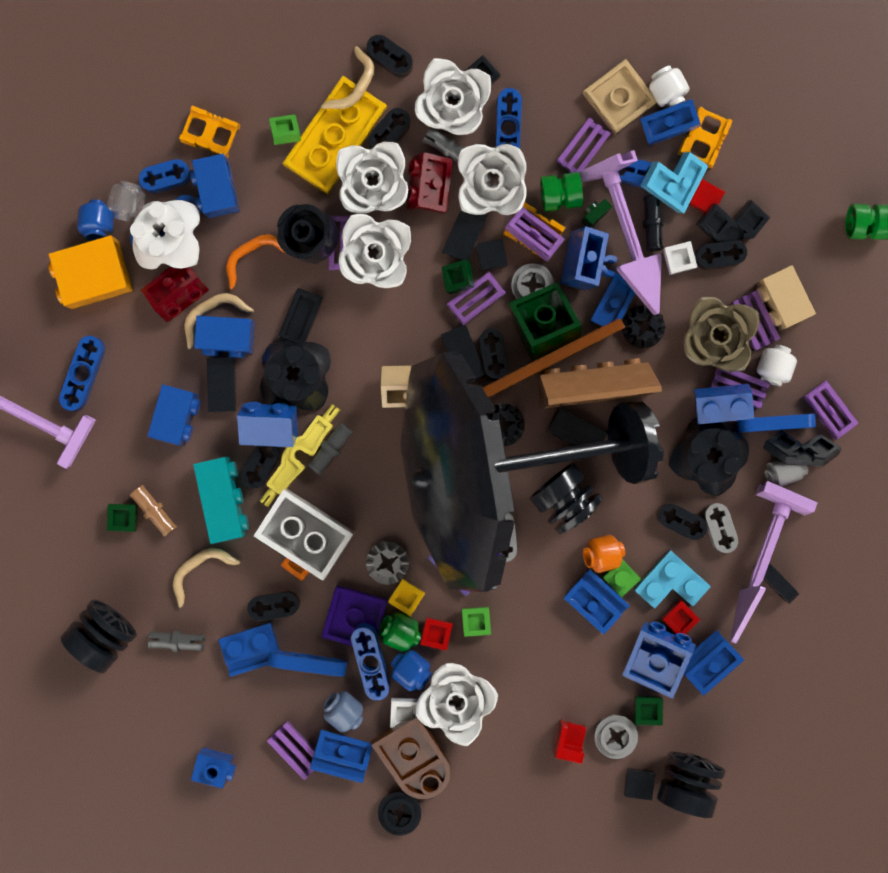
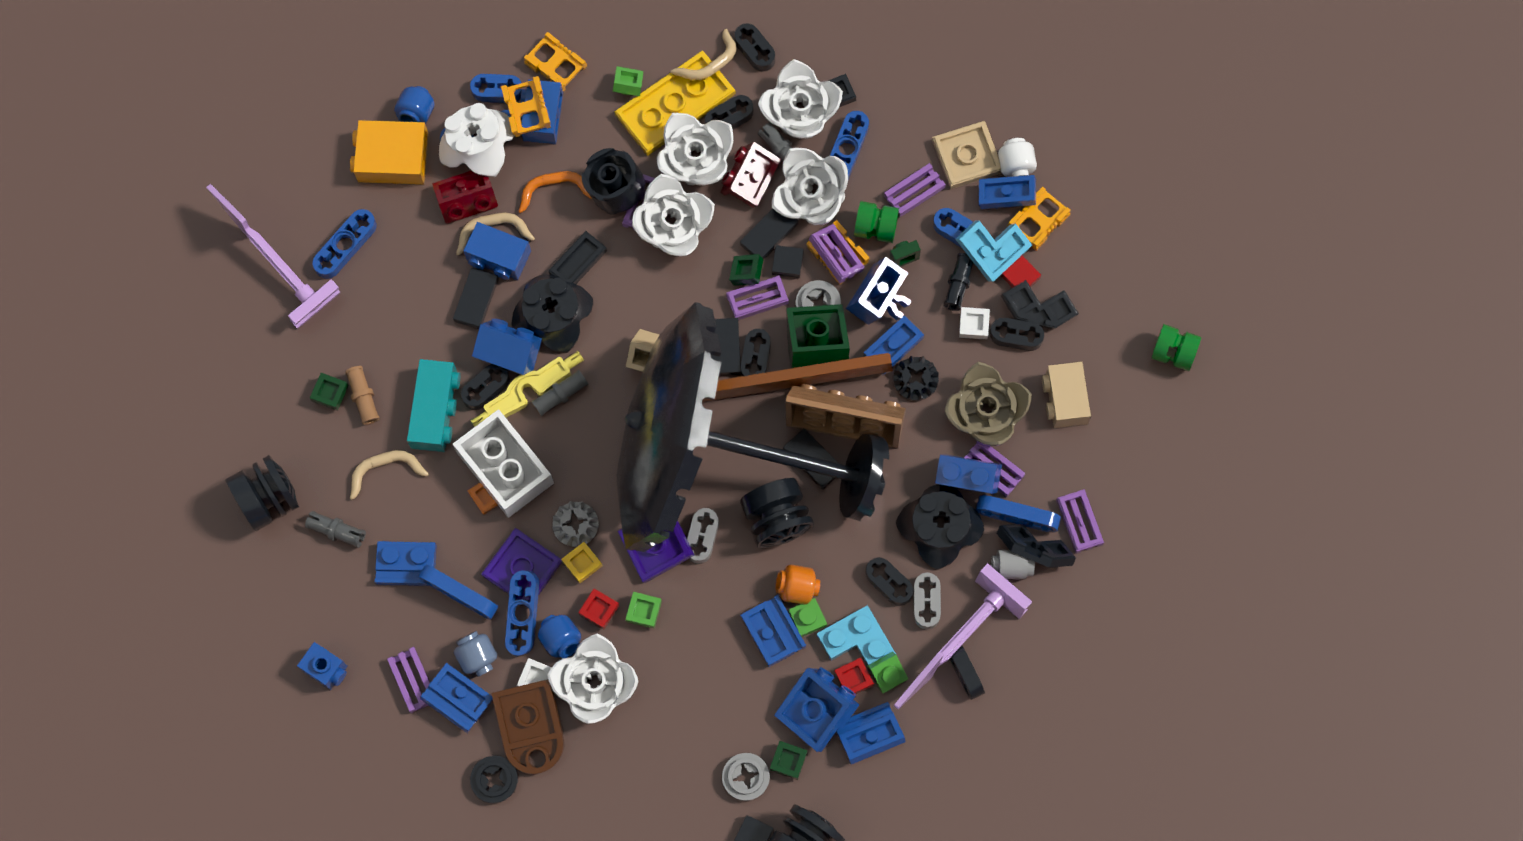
camera: 20 degrees right, 15 degrees down
(126, 200) = (450, 96): clear head -> none
(174, 415) = (418, 310): blue brick -> none
(193, 194) = (516, 109): none -> light orange piece
(273, 612) = (446, 521): black beam -> none
(399, 631) = (562, 593): green head -> none
(510, 414) = (752, 419): black gear -> none
(570, 742) = (696, 764): red panel -> none
(642, 273) = (928, 323): lavender piece -> none
(708, 604) = (887, 672): none -> bright green plate
(765, 318) = (1043, 412): medium lavender tile -> none
(776, 365) = (1037, 457): white head -> none

